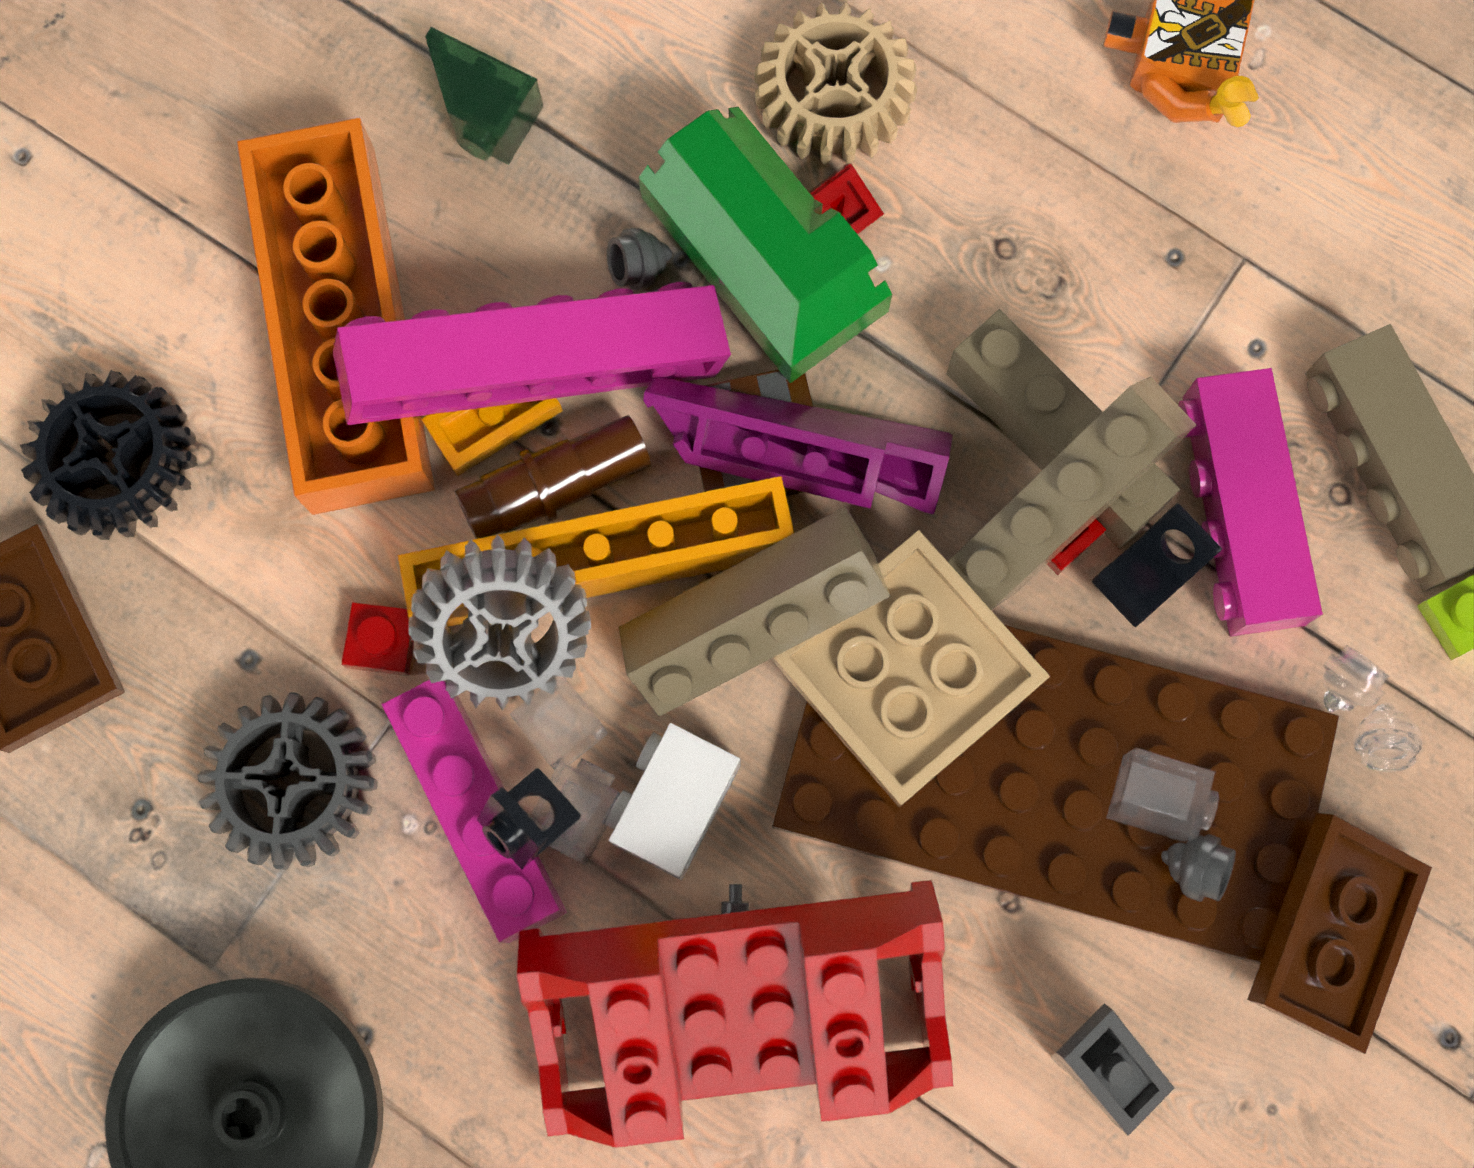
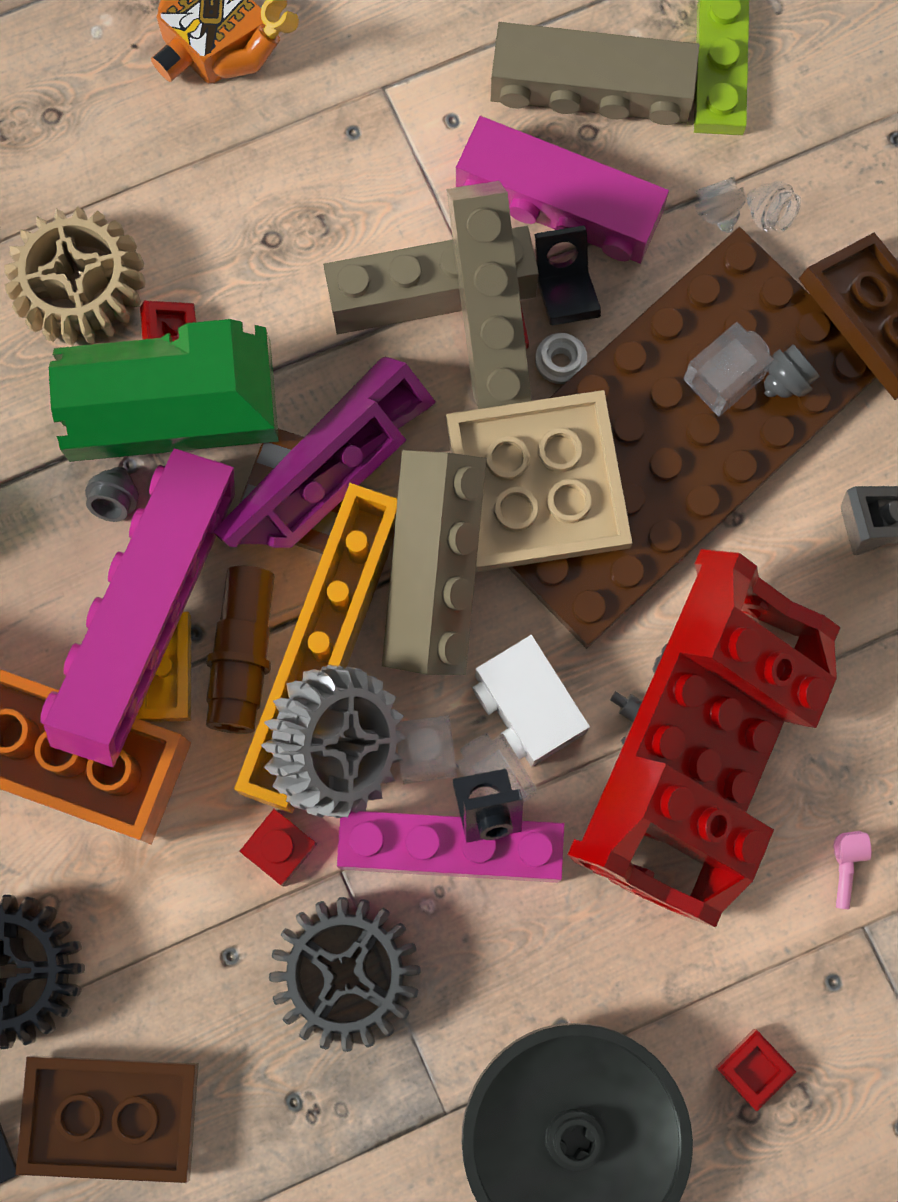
camera: 60 degrees left, 0 degrees up
(1079, 601) = (560, 344): none -> white plate

